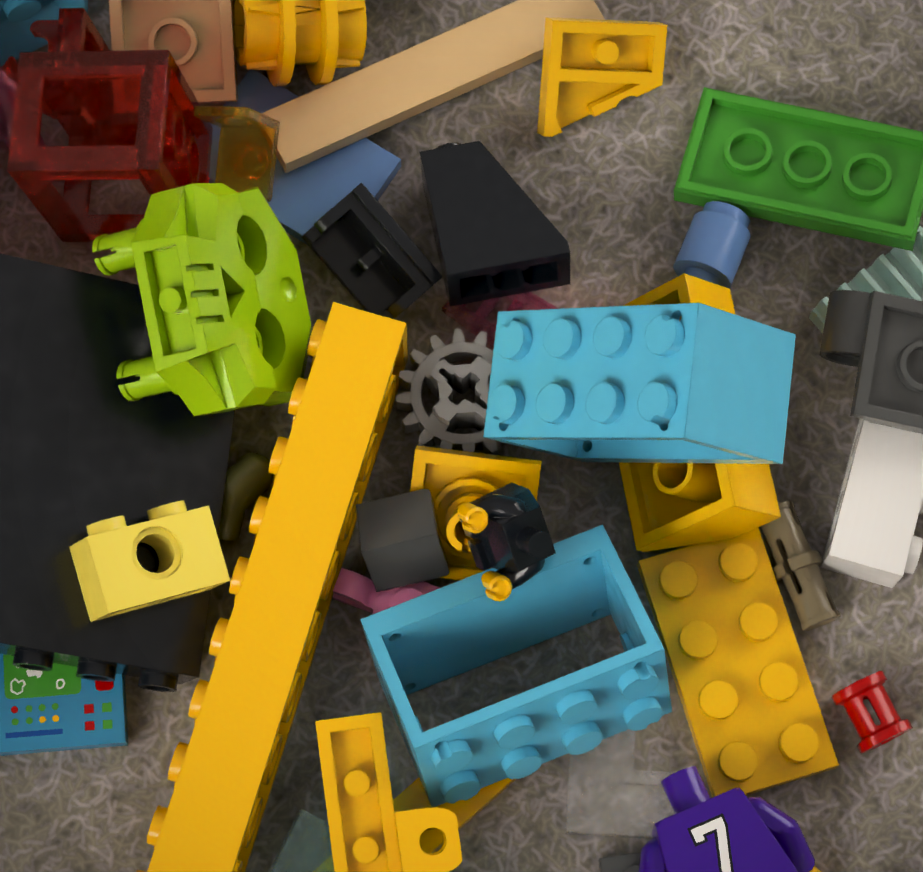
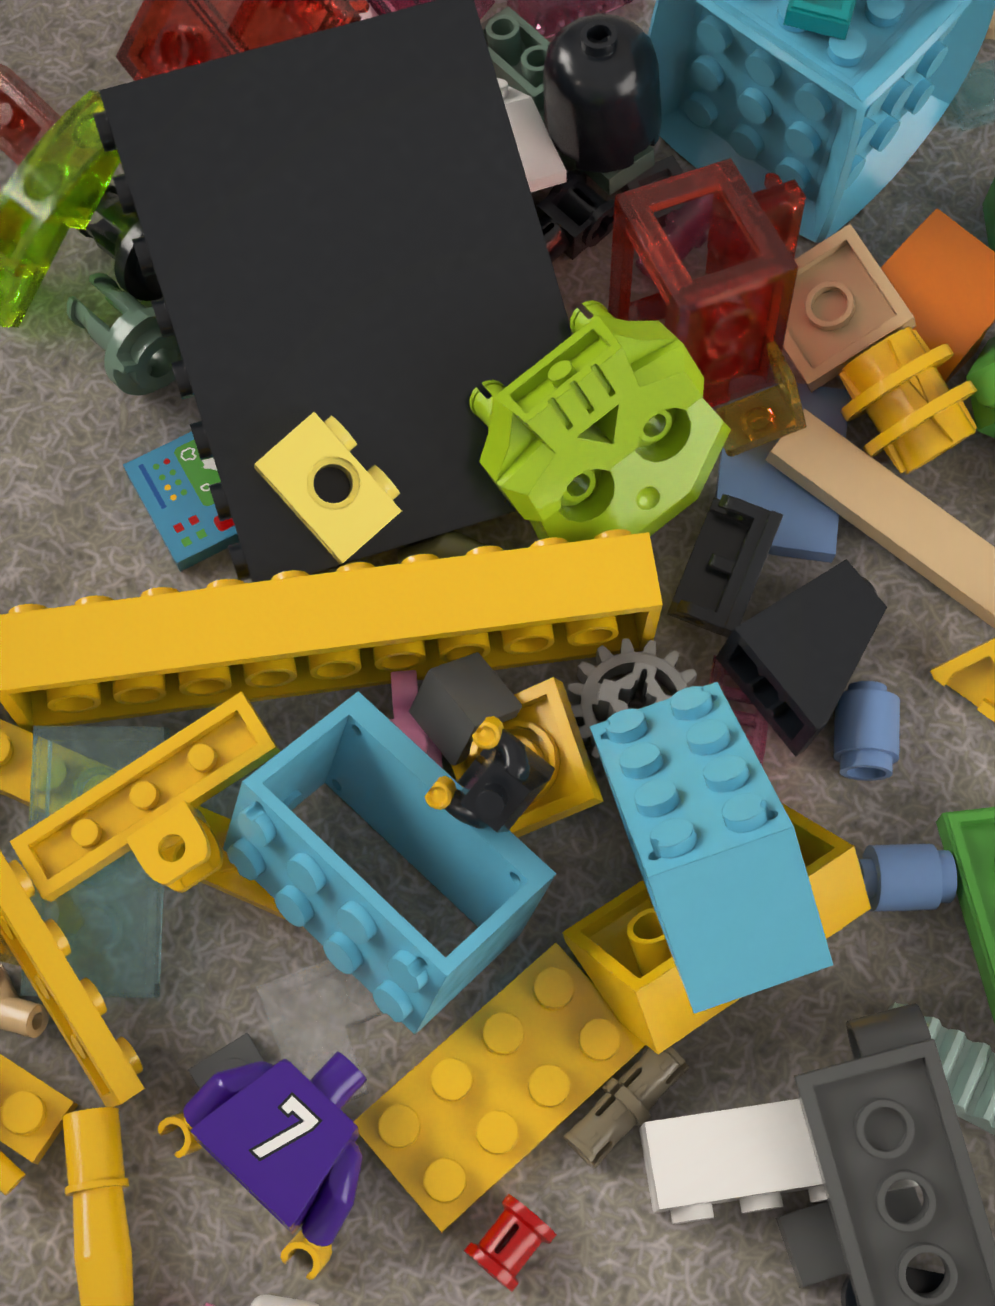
camera: 65 degrees right, 5 degrees down
(577, 213) = (867, 731): none -> medium blue brick

